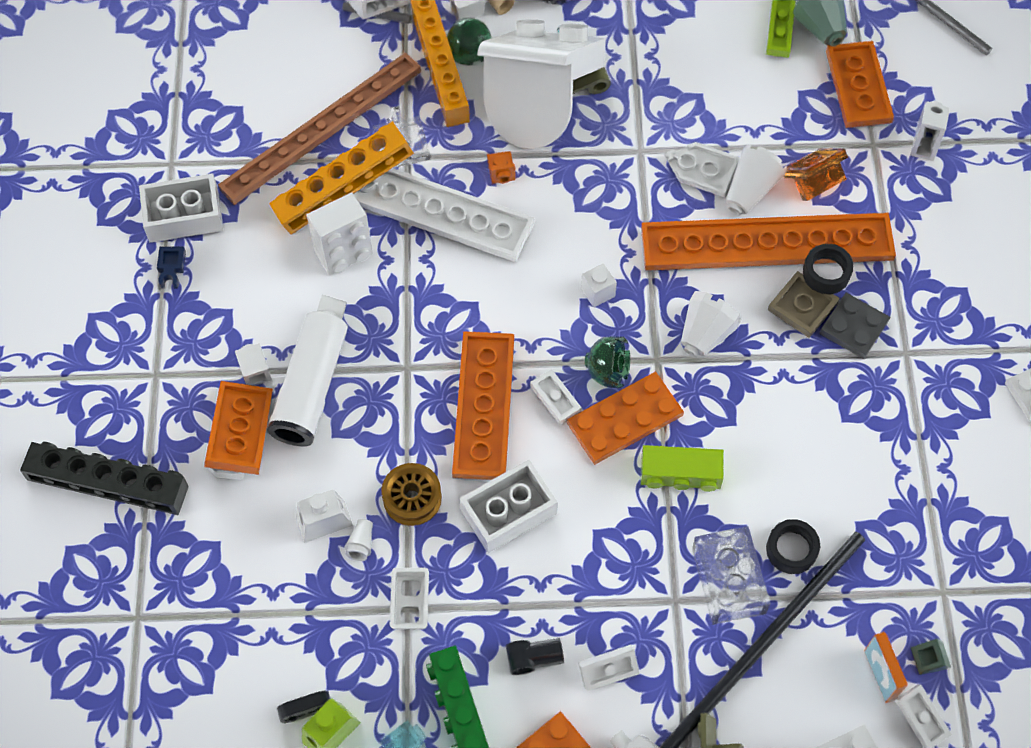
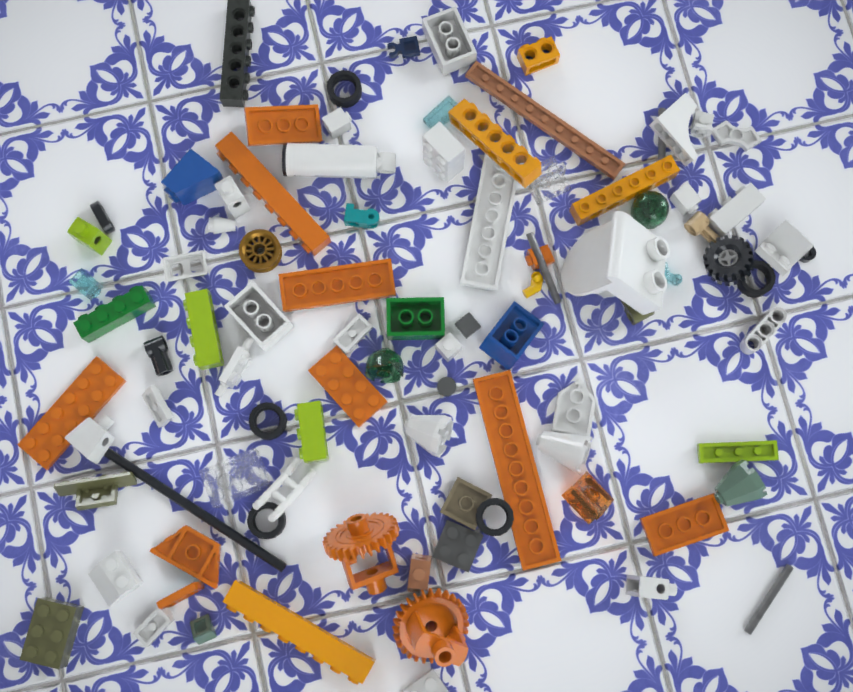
camera: 80 degrees right, 15 degrees up
(200, 332) = (344, 75): none -> black tyre
(232, 111) = (540, 59): none -> light orange brick
(277, 240) = (440, 113): none -> clear light blue tile
(282, 559) = (191, 179): none -> blue slope
(331, 464) = (275, 196): none -> orange brick
(396, 361) = (361, 218): none -> teal leg
(510, 583) = (204, 329): none -> lime brick
(519, 161) = (543, 267): none -> flat silver piece
(536, 178) = (535, 286): none -> yellow arm
(553, 314) = (415, 318): none -> green brick
(572, 262) = (467, 325): none -> dark grey tile
(581, 549) = (238, 362): none -> white plate
(599, 214) = (511, 335): none -> blue slope
(648, 301) = (446, 386): none -> dark grey tile
(662, 504) = (253, 421): none -> black tyre
(753, 500) = (284, 478): none -> white piece
(826, 653) = (192, 554): none -> orange wing
(838, 418) = (359, 536): none -> orange piece
(887, 368) = (419, 573): none -> nougat torso
(944, 530) = (299, 631): none -> light orange brick
(962, 359) = (441, 637): none -> orange piece

